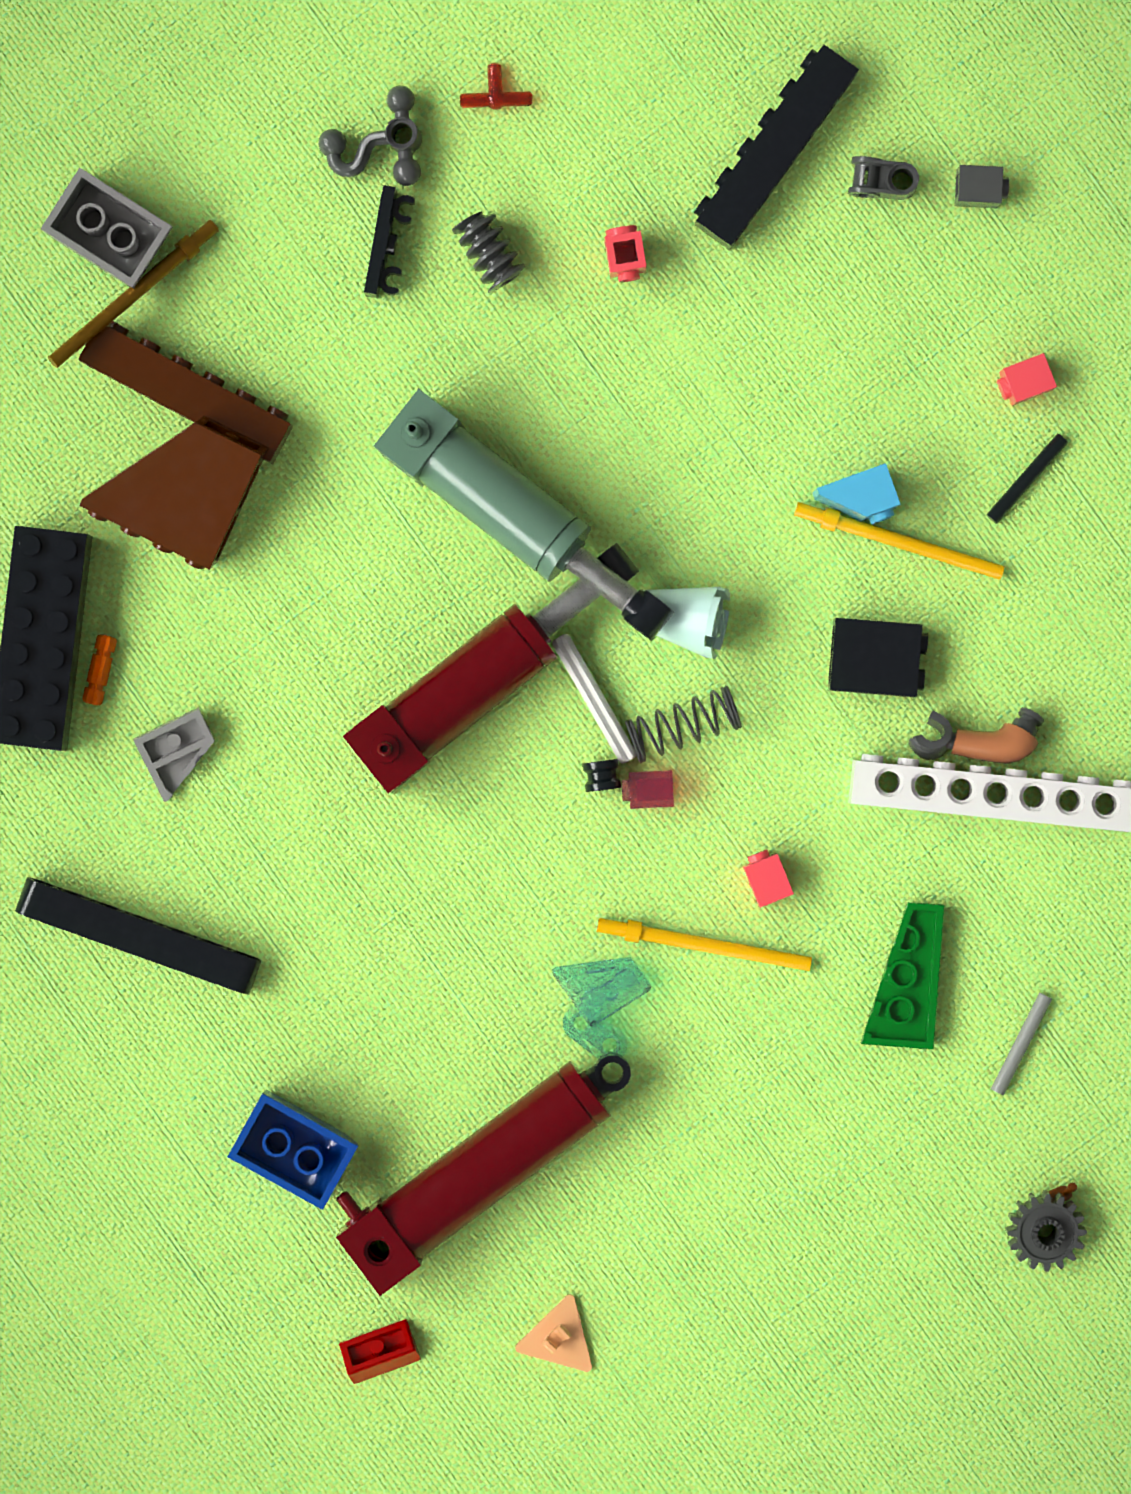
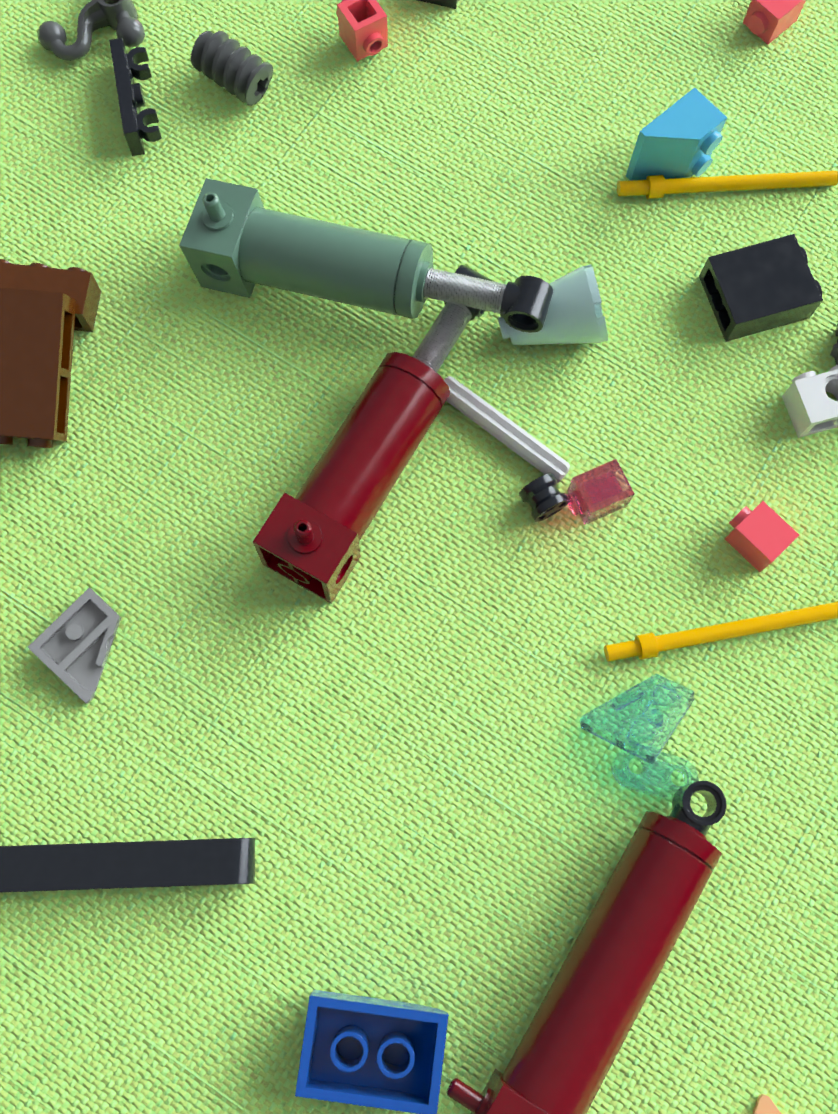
camera: 25 degrees left, 15 degrees down
(730, 711) = (657, 387): dark grey piece -> none
(1027, 478) = (814, 93): black bar -> none

